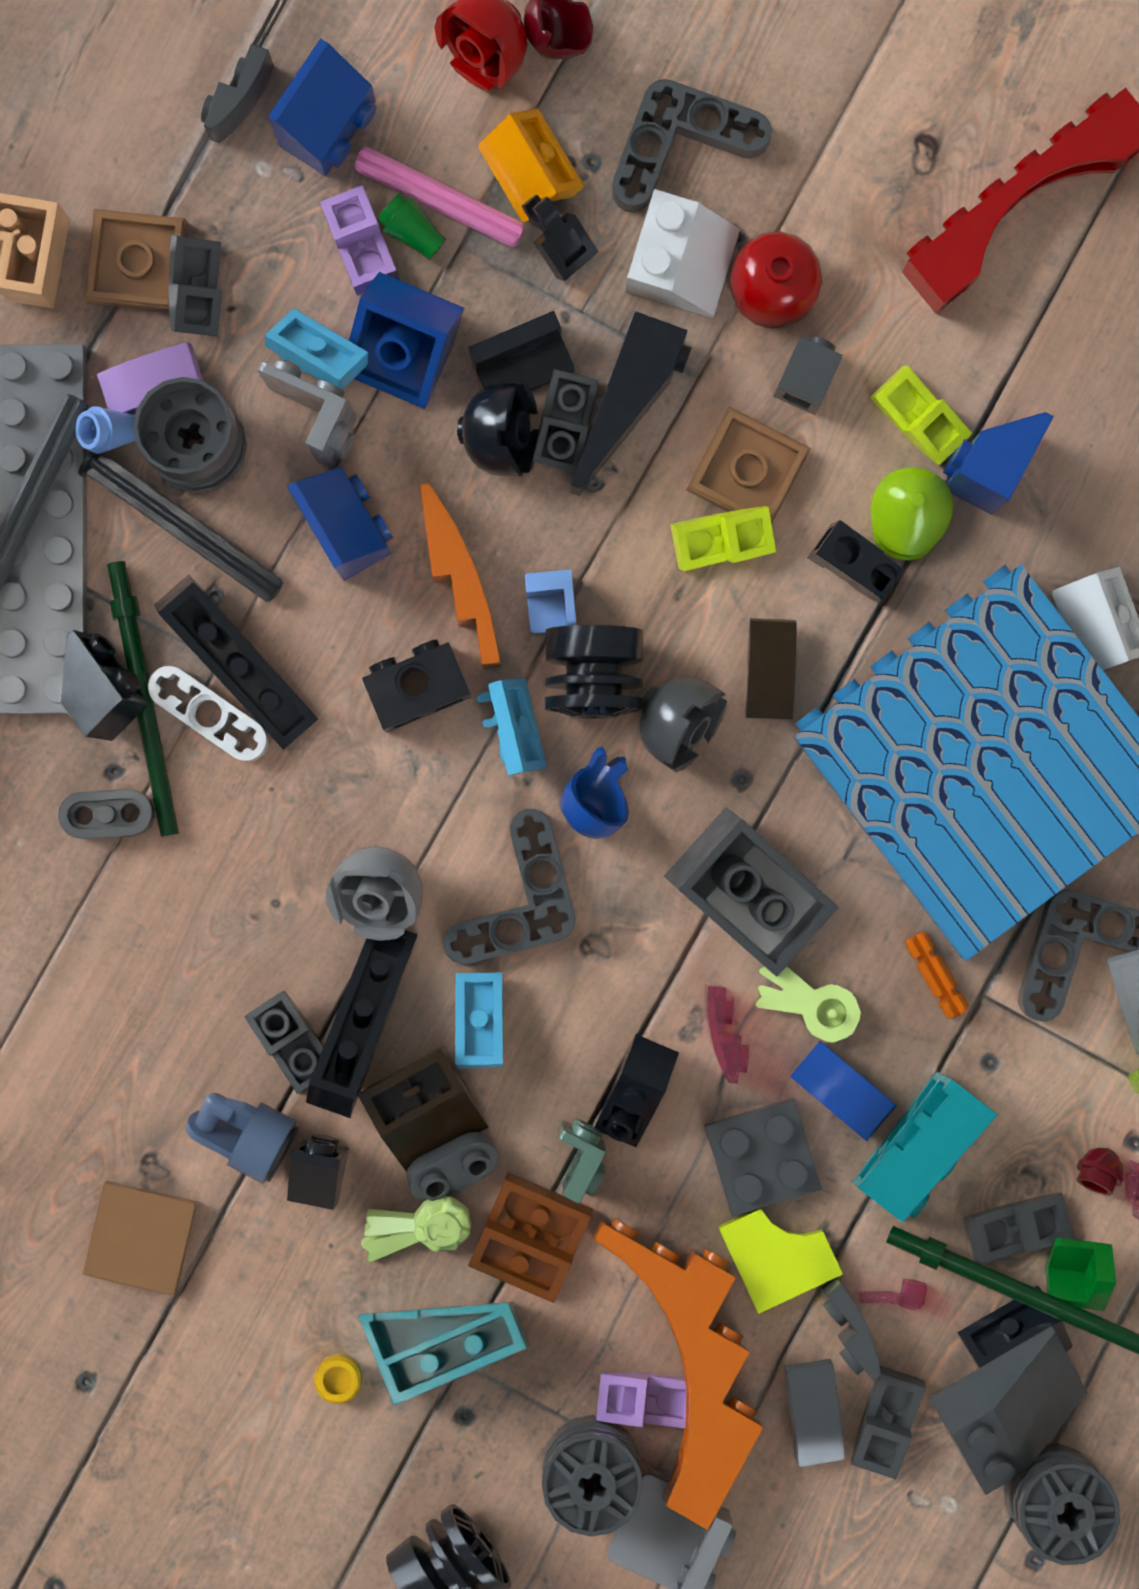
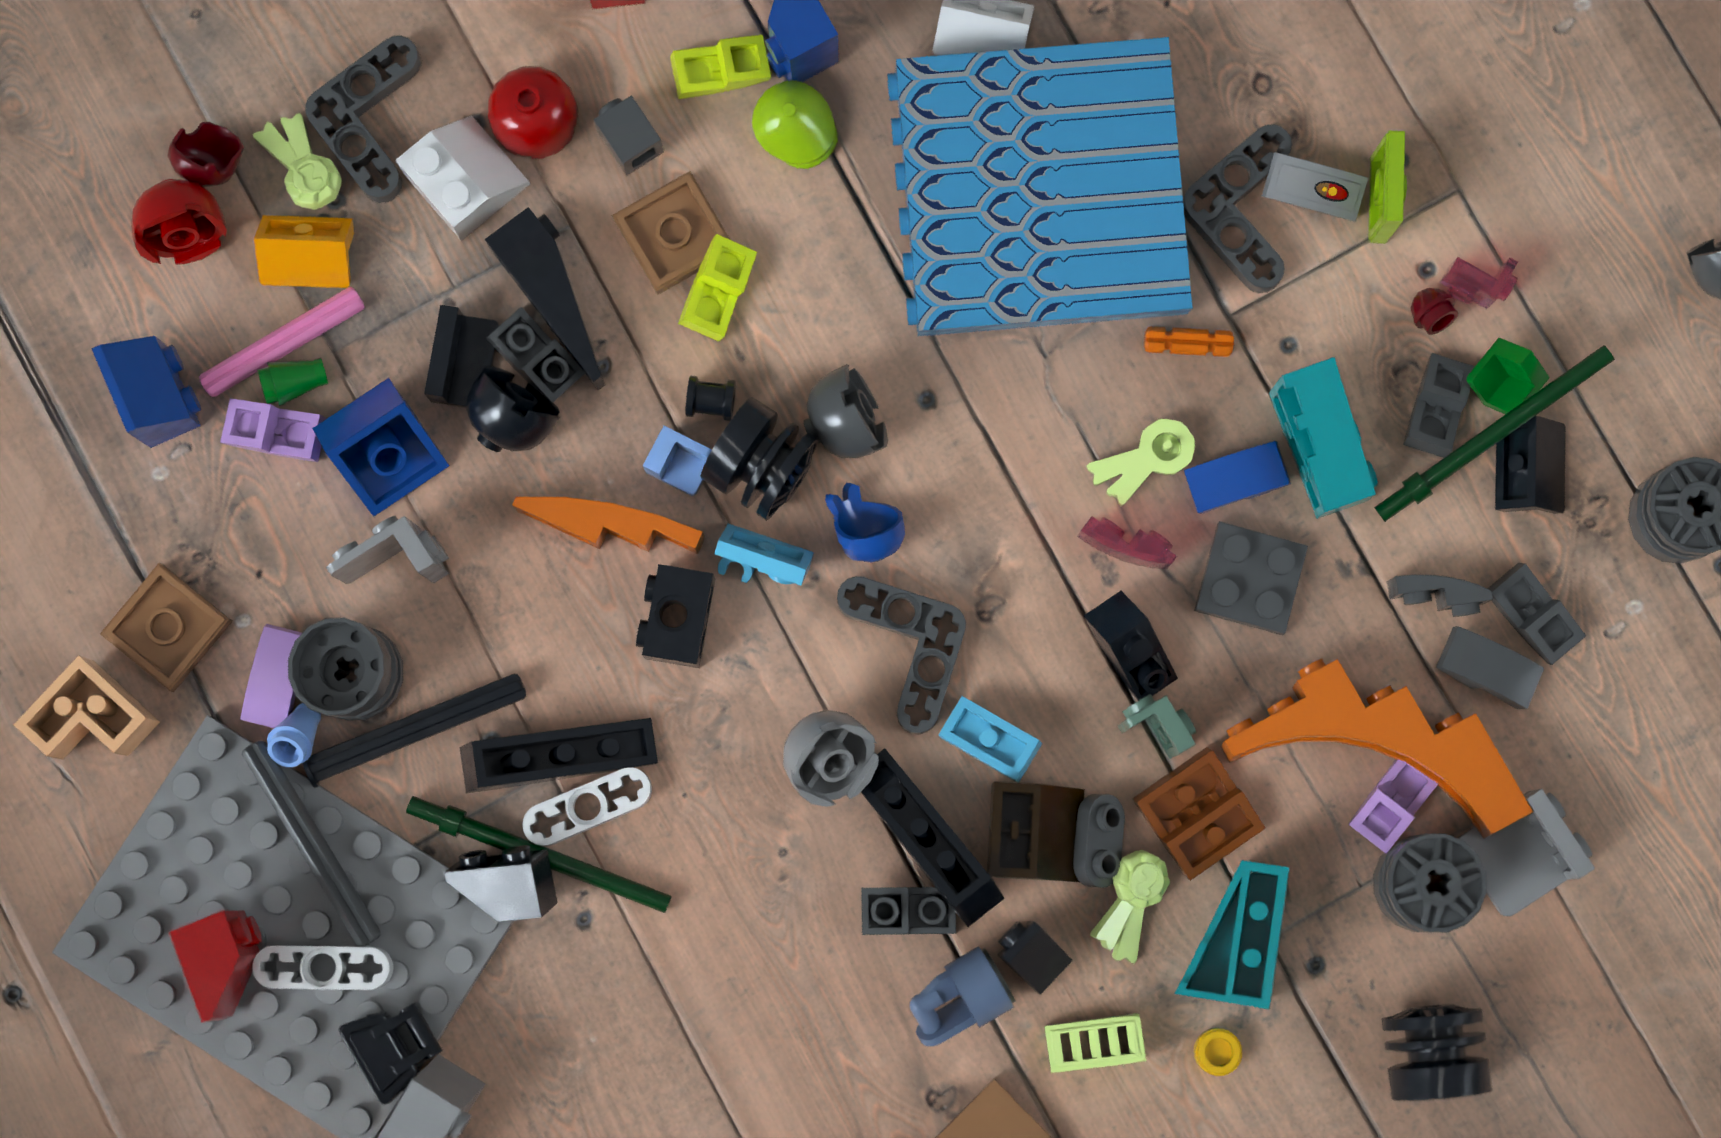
camera: 55 degrees left, 5 degrees down
(108, 814) = (616, 945): dark grey plate -> none
(193, 285) = (215, 589): dark grey slope -> none
(233, 104) = (90, 462): dark grey slope -> none
(276, 1294) = (1134, 1036): none -> yellowish green slope
(316, 349) = (342, 520): medium azure plate -> none
(341, 521) = (500, 590): blue slope -> none
(563, 240) = (387, 262): black plate -> none
(596, 128) = (310, 178): none -> yellowish green piece
(622, 593) = (710, 398): none -> black bush
(751, 891) = (1024, 447): dark grey slope -> none
(771, 668) = (850, 316): dark brown slope -> none
(777, 1261) = (1345, 622): neon yellow tile -> none
(856, 561) = (806, 192): black leg -> none
(911, 1295) = (1441, 527): clear pink hand -> none
(1010, 1408) = (1583, 504): dark grey slope -> none

